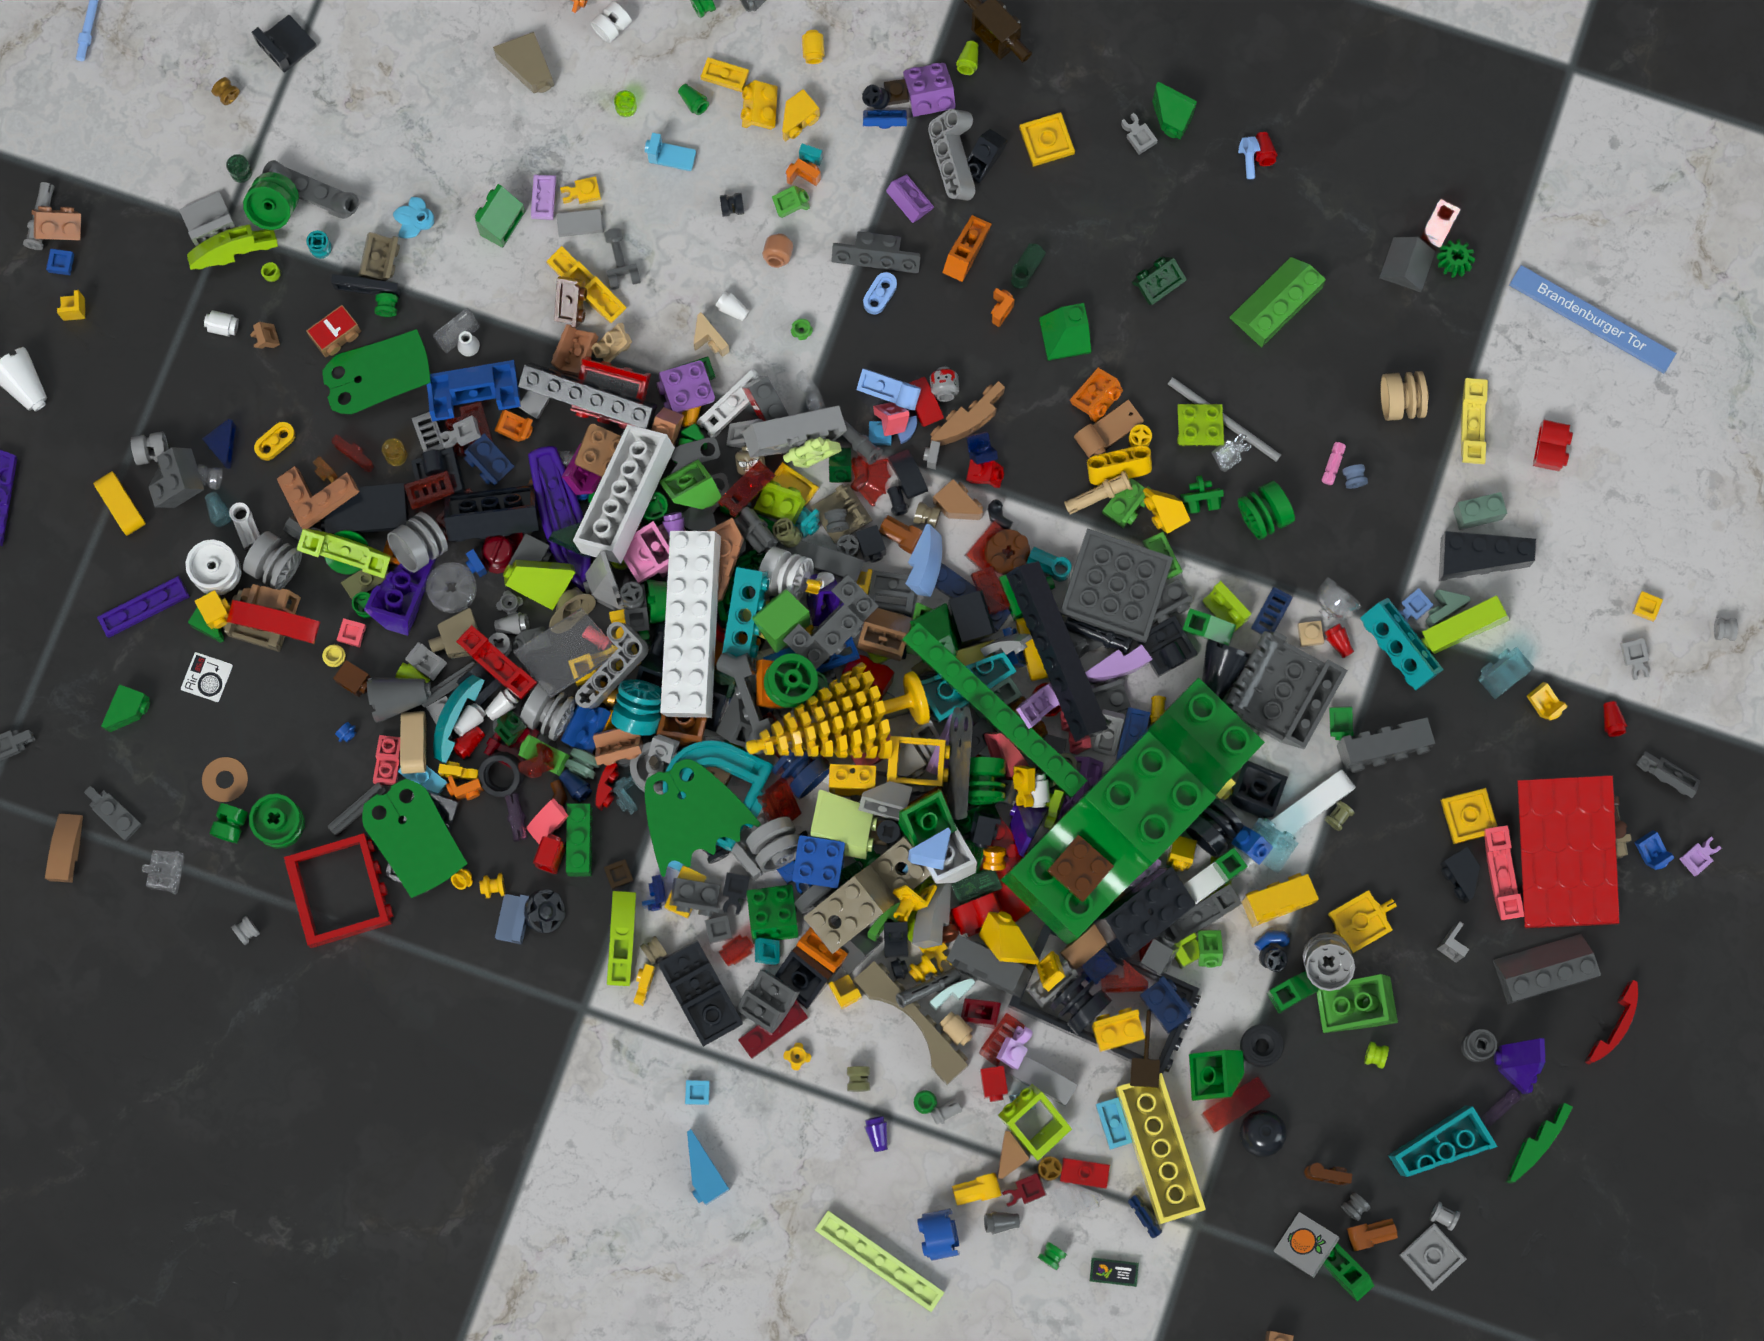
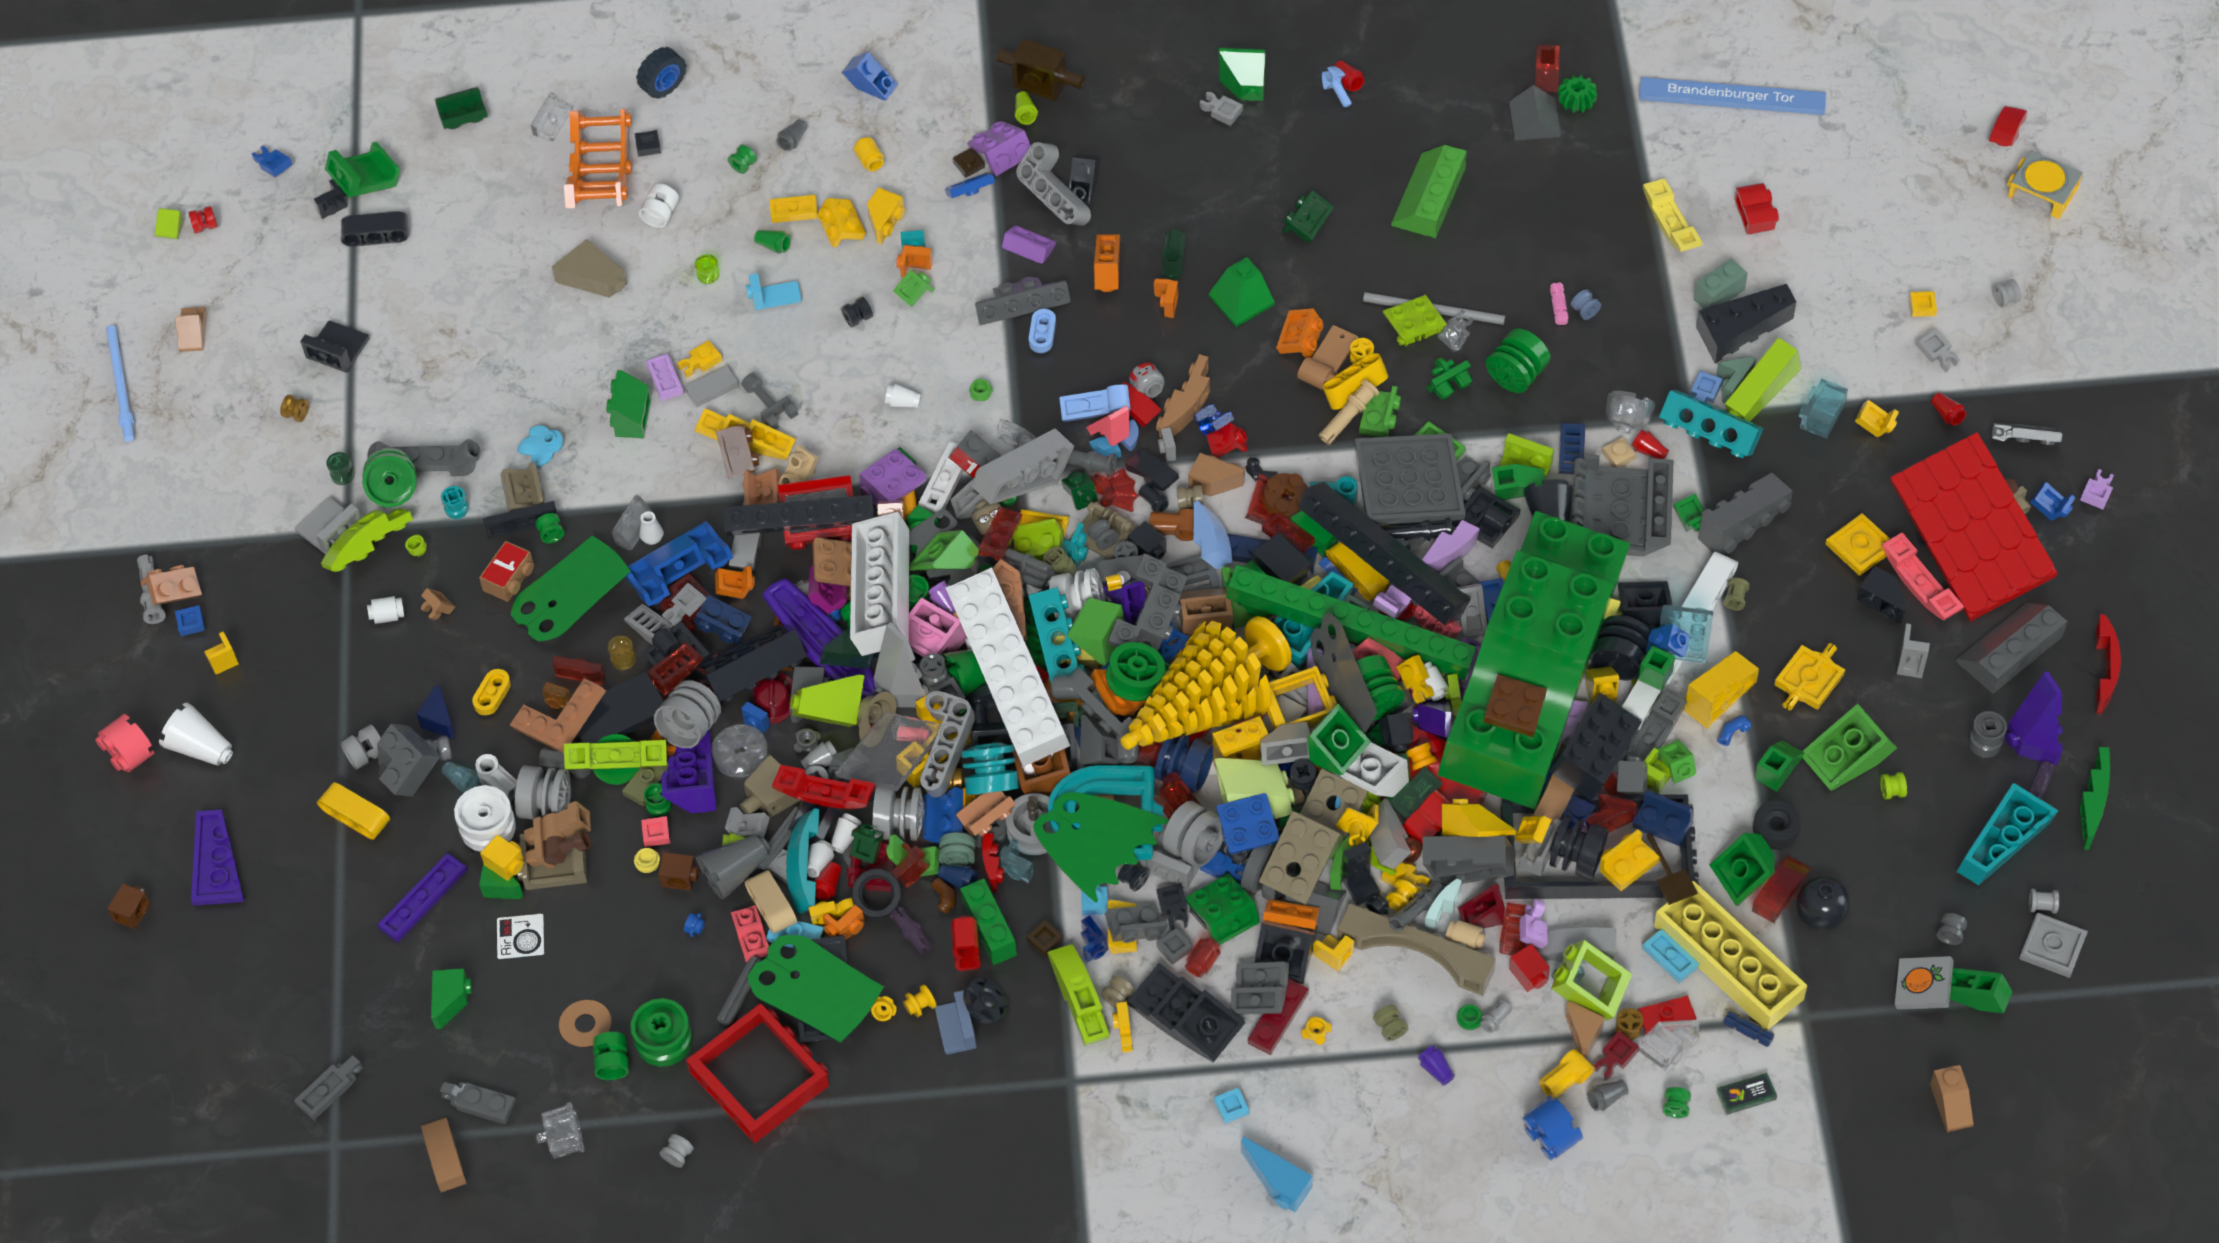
camera: 20 degrees left, 20 degrees down
(273, 621) = (571, 835): red slope -> none
(547, 820) = (949, 906): coral slope -> none
(663, 748) = (1037, 787): light grey bracket -> none
(706, 332) = (892, 427): tan slope -> none
(767, 951) = (1234, 945): teal plate -> none
(777, 250) = (922, 332): nougat head -> none
(812, 452) = (1048, 482): yellowish green plate -> none
(871, 93) = (947, 172): black wheel -> none
(879, 1261) = (1503, 1184): yellowish green plate -> none
(932, 851) = (1357, 765): light blue slope -> none
(1007, 644) = (1334, 563): light grey slope -> none
(1047, 139) = (1135, 146): yellow tile -> none
(1167, 510) = (1421, 398): yellow slope -> none
(1278, 960) = (1747, 737): black wheel -> none
(1327, 973) = (1812, 711): light grey wheel -> none
(1334, 1175) = (1917, 907): reddish brown plate -> none
(1367, 1235) = (1978, 951): dark orange piece -> none
(1407, 395) = (1594, 217): tan wheel -> none

